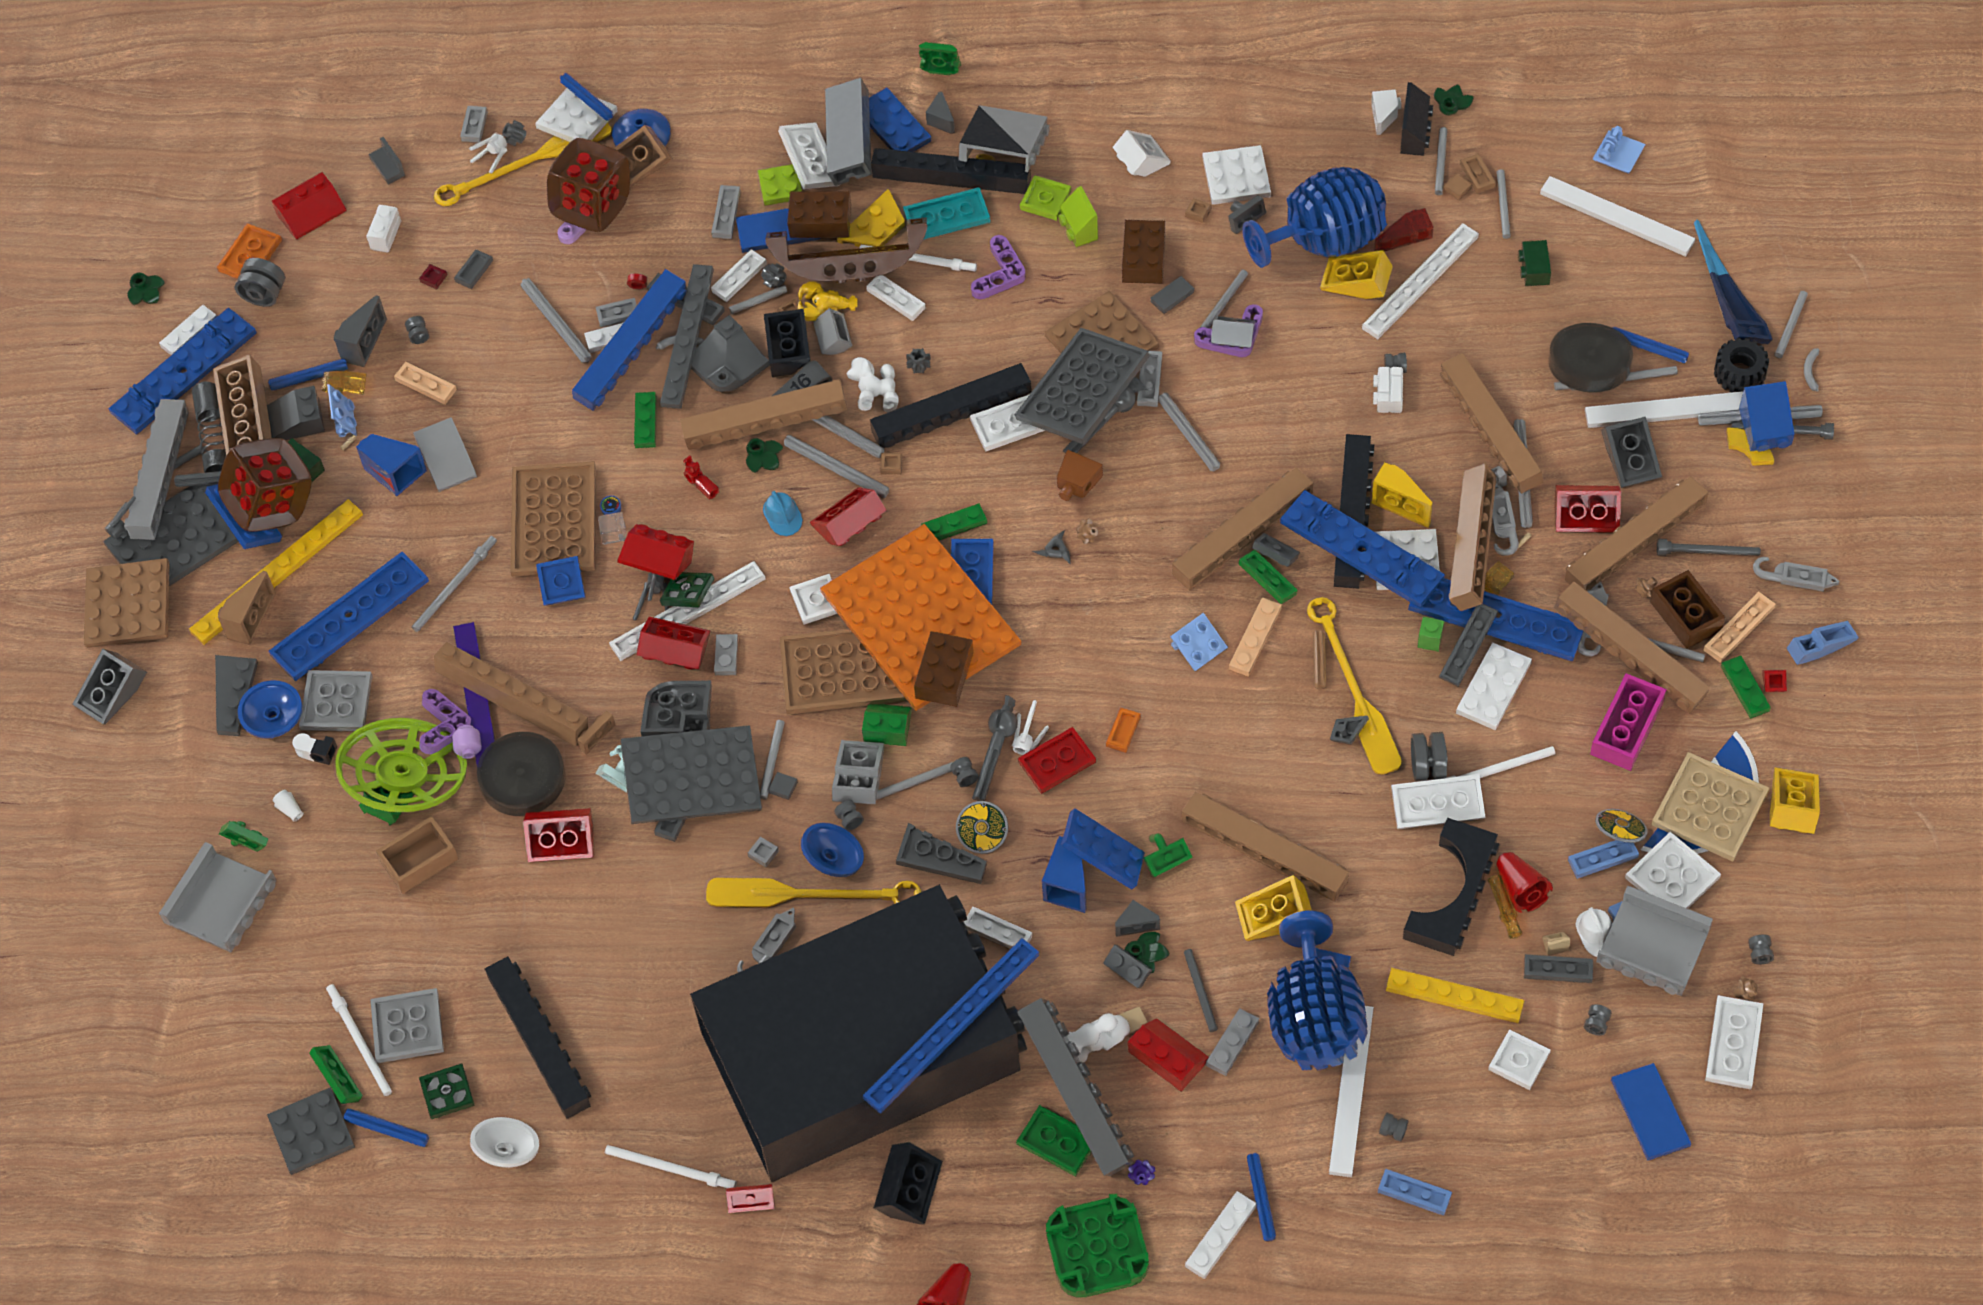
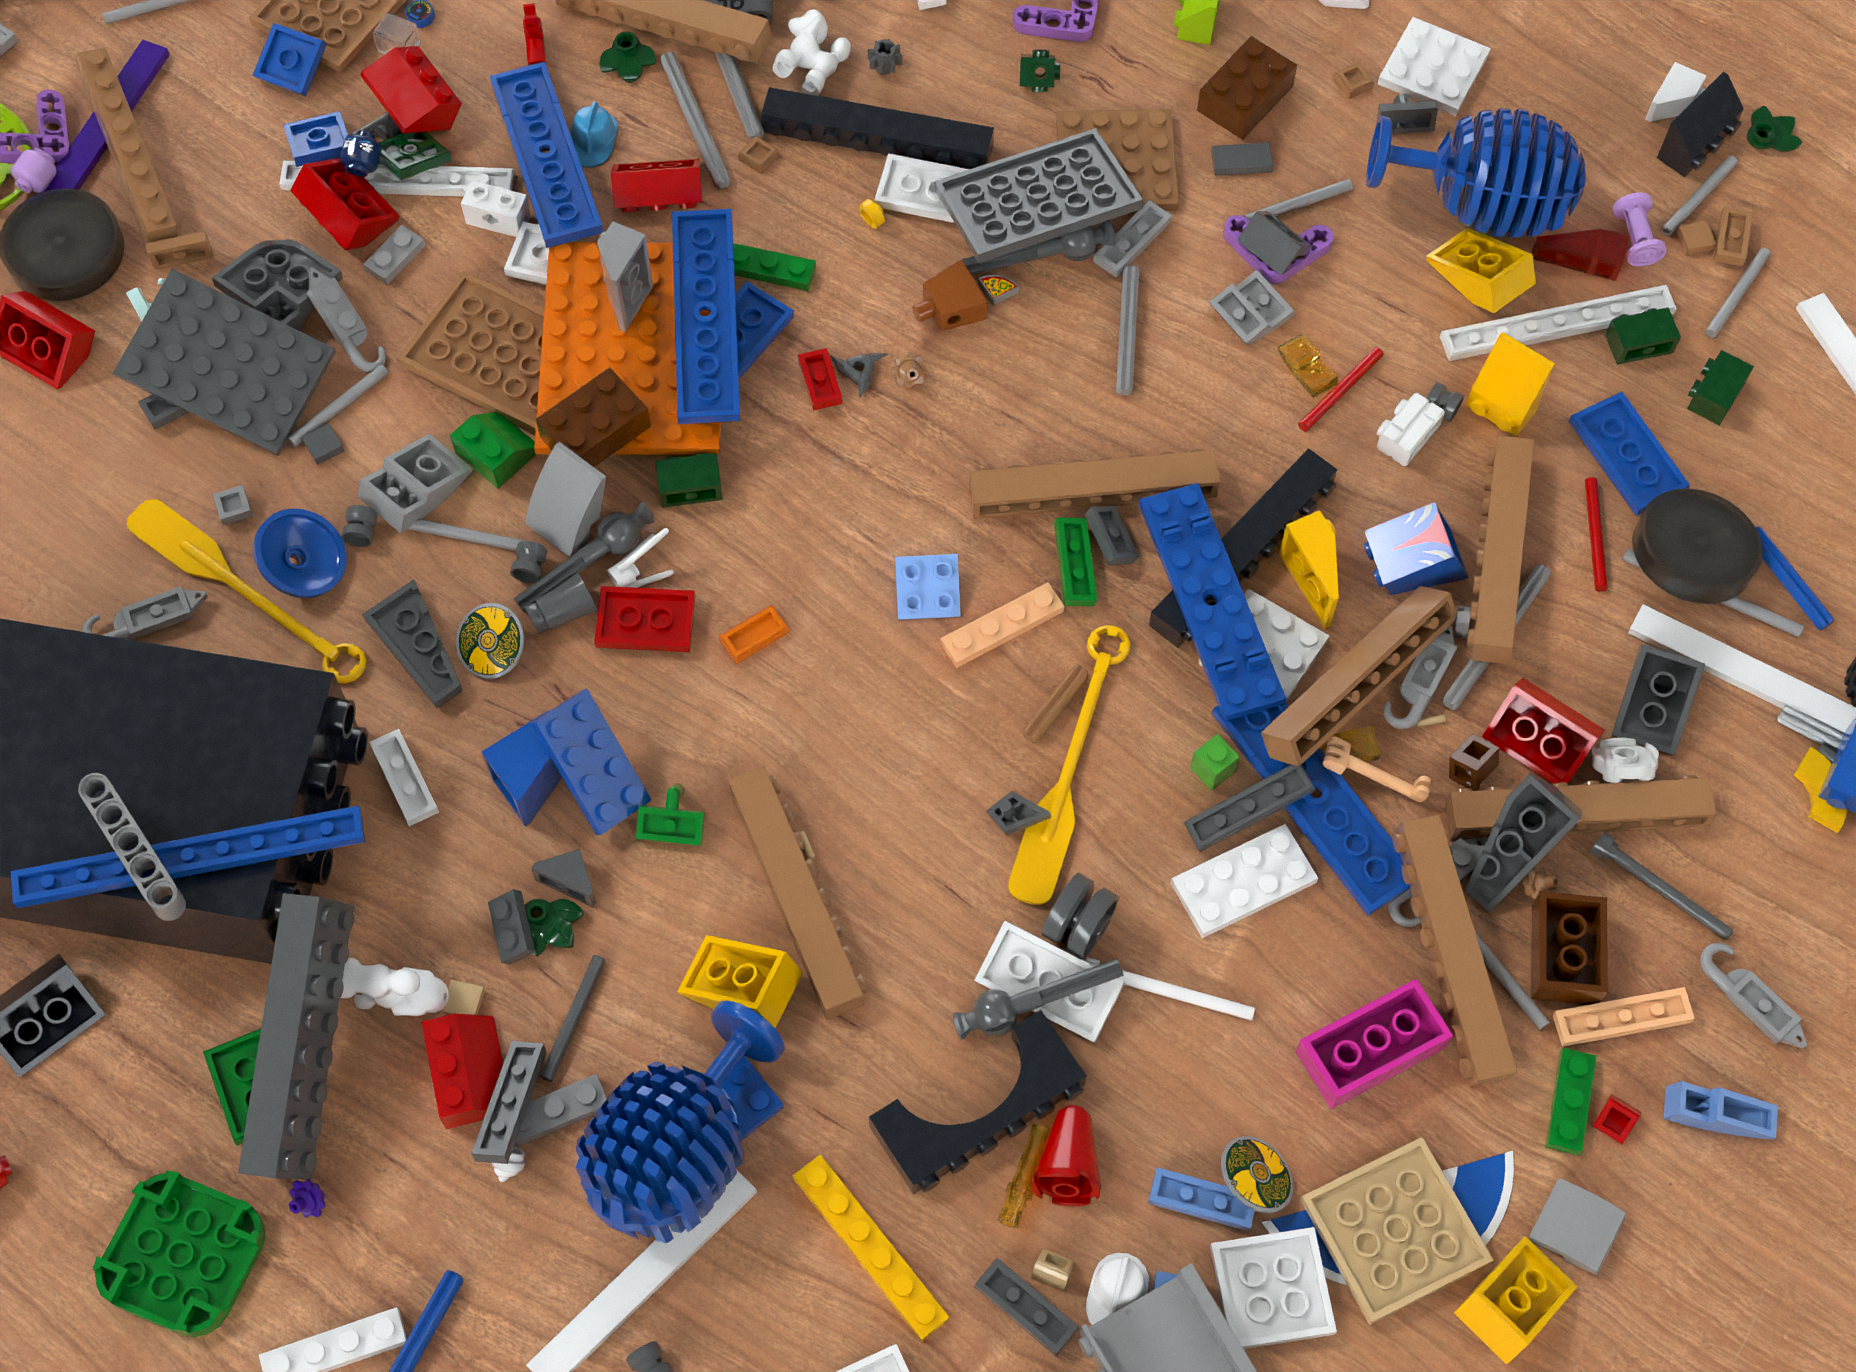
camera: 30 degrees right, 5 degrees up
(621, 616) = (316, 138): none -> plate
(663, 606) = (360, 153): none -> dark blue head
(735, 707) = (341, 318): none -> light grey plate
(767, 590) = (495, 208): none -> white brick
(787, 549) = (551, 178): none -> blue piece
(892, 573) = (625, 271): none -> light grey slope
(916, 1027) = (138, 859): none -> light grey beam
(963, 722) = (566, 500): none -> light grey slope
(970, 584) = (705, 344): none -> blue piece
(989, 456) = (871, 213): none -> yellow tile
(1005, 781) = (561, 605): none -> dark grey plant
(1015, 669) = (688, 480): none -> dark green brick
(1016, 314) = (1031, 62): none -> dark green brick
(1040, 567) = (820, 379): none -> red plate
(1096, 452) = (998, 287): none -> tile
(1209, 1049) = (509, 1102): none -> plate
(1231, 1083) = (514, 1166): none -> white plate
(1248, 376) = (1252, 308): none -> light grey slope
(1305, 391) = (1305, 364): none -> clear yellow slope
(1333, 391) = (1340, 389): none -> red bar
(1415, 192) = (1633, 210): none -> lavender hose
(1424, 835) = (997, 1011): none -> dark grey piece
(1427, 331) = (1510, 384): none -> yellow slope
(1446, 454) = (1415, 551): none -> slope
(1472, 259) = (1642, 335): none -> dark green brick
(1497, 589) = (1338, 758): none -> light nougat hinge
(1514, 329) = (1627, 451): none -> blue plate
(1531, 385) = (1596, 536): none -> red bar
(1564, 546) = (1473, 762): none -> reddish brown brick
(1623, 562) = (1524, 832): none -> dark grey wedge
(1640, 495) = (1625, 760): none -> white plate
(1796, 744) = (1578, 1226): none -> light grey slope

